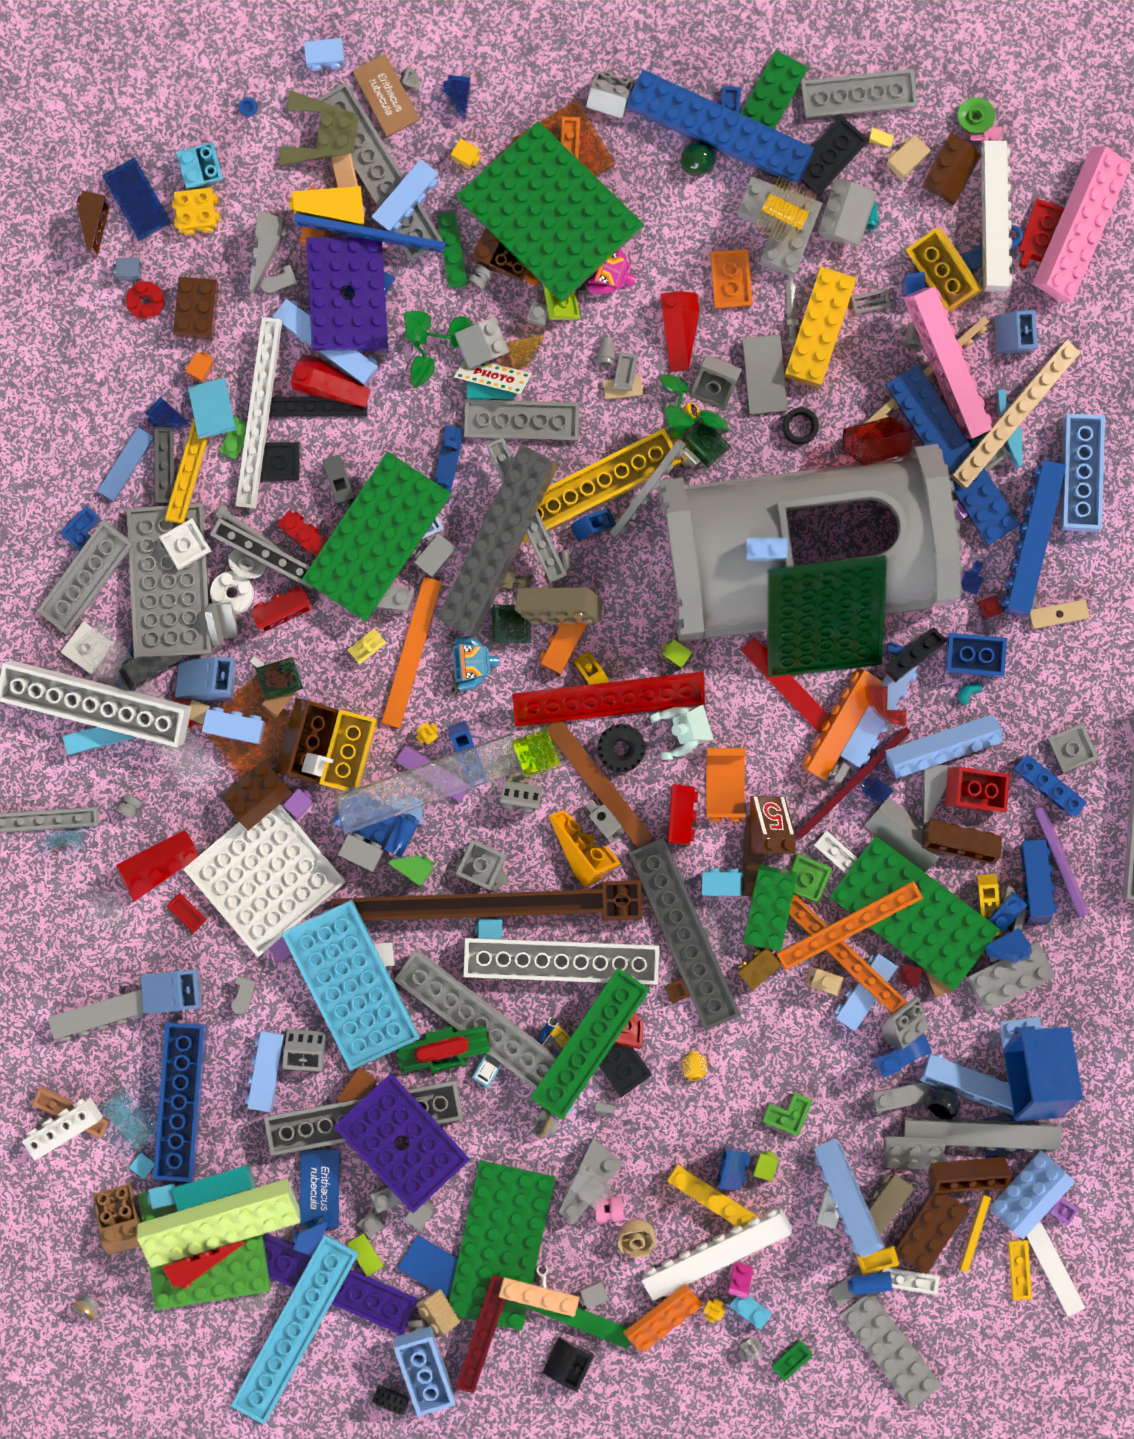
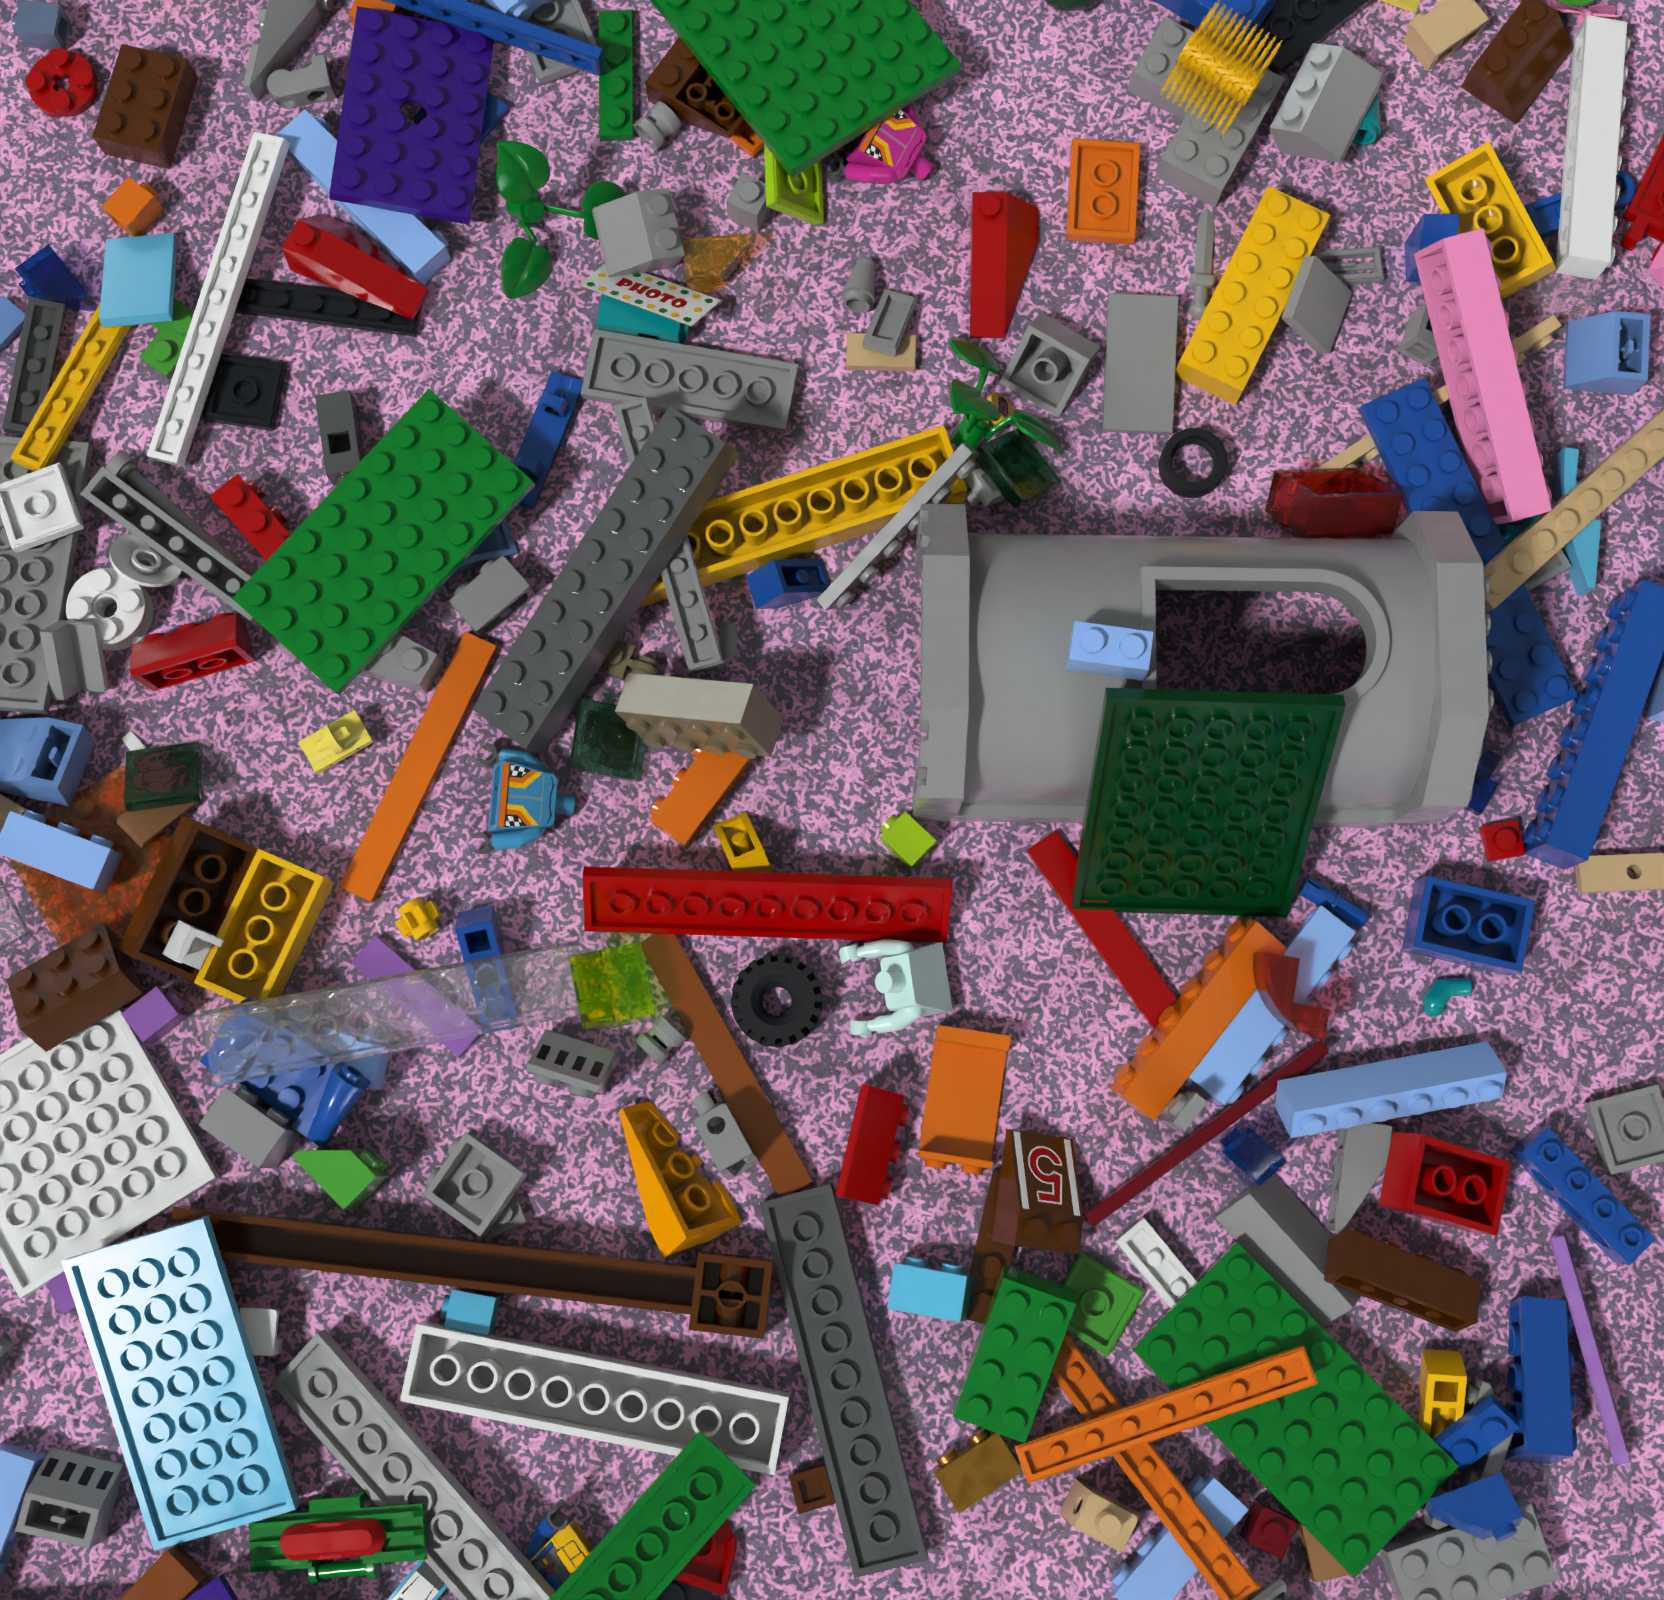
camera: 10 degrees right, 5 degrees down
(567, 774) = (666, 1033): none -> light grey wheel
(856, 328) = (1316, 304): none -> light grey tile
(914, 655) = (1353, 907): black plate -> none

